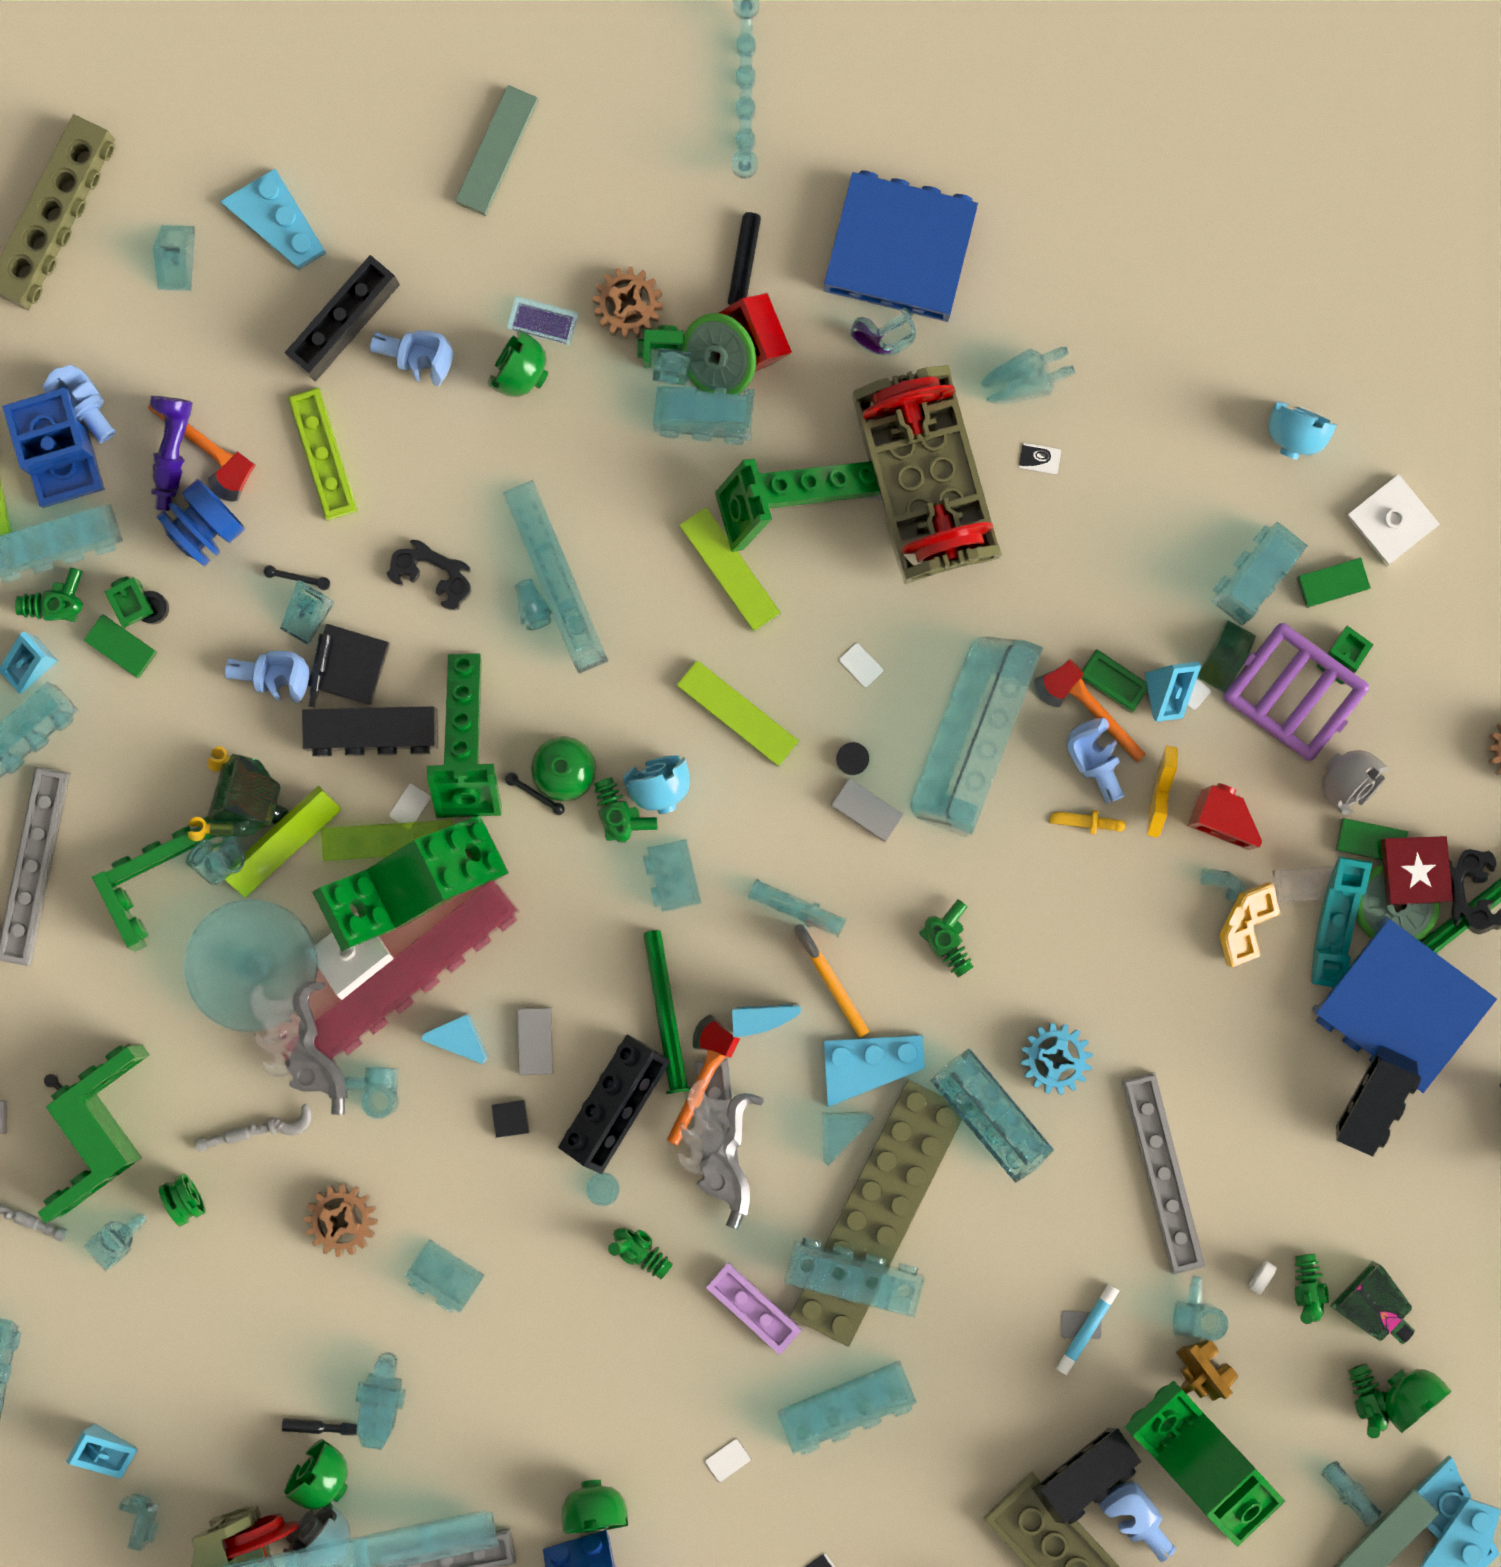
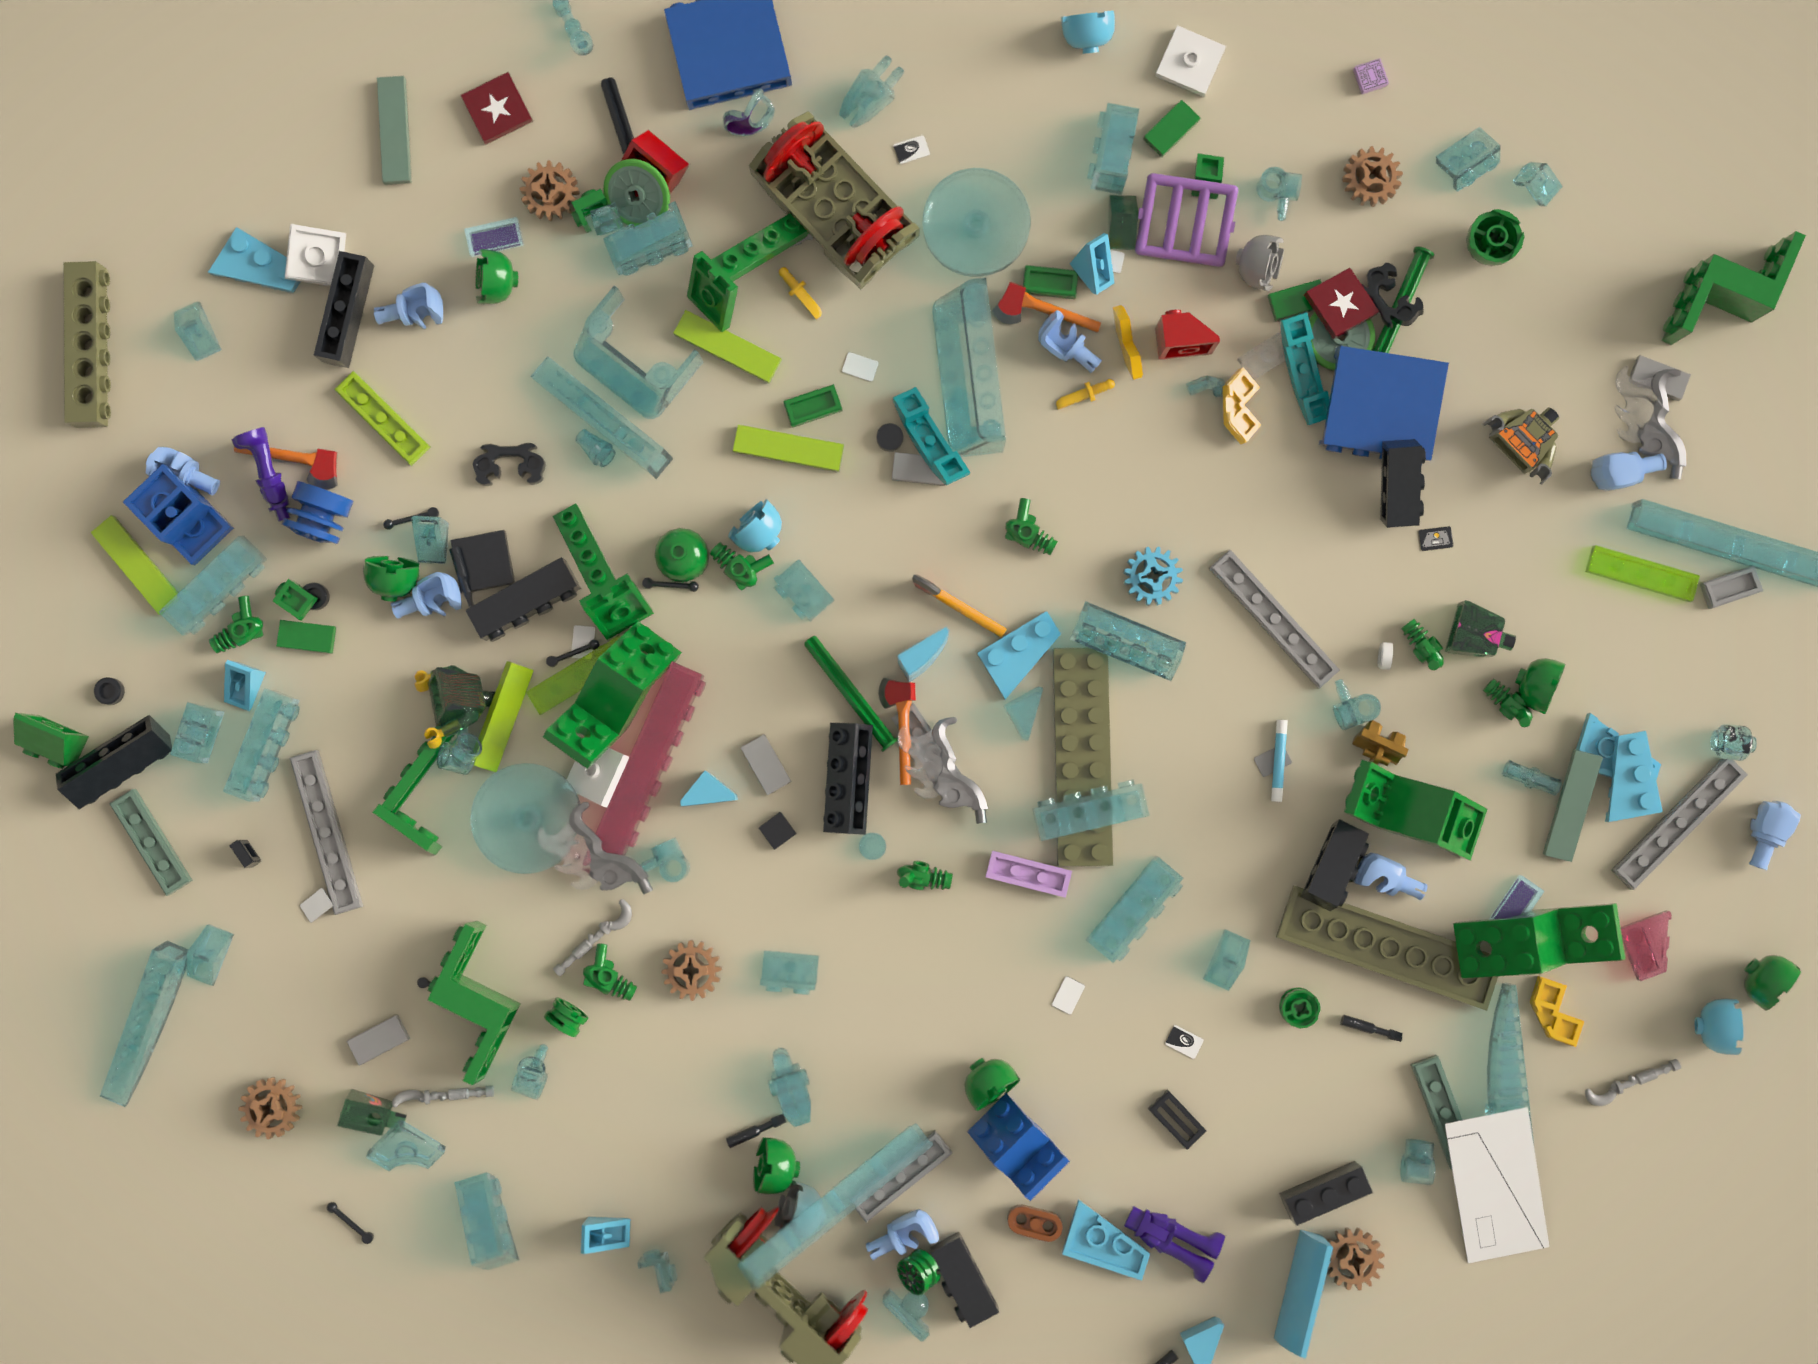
camera: 30 degrees left, 0 degrees up
(242, 631) = (390, 577): none -> green cylinder
(244, 1179) = (604, 978): none -> green piece
(341, 241) = (313, 254): none -> white plate
(366, 810) = (553, 661): none -> black hinge
(613, 573) = (644, 392): none -> clear light blue windscreen
(618, 183) = (496, 108): none -> dark red tile
(787, 681) = (812, 406): none -> green tile
(832, 925) = (873, 568): clear light blue pin -> none
(838, 550) = (800, 292): none -> yellow piece
(893, 784) = (927, 438): none -> teal slope
(918, 1514) = (1227, 960): none -> clear light blue slope
(1067, 576) = (976, 222): none -> clear light blue dish
(1385, 1178) = (1436, 538): none -> black sticker
(1424, 716) = (1288, 188): none -> clear light blue piece

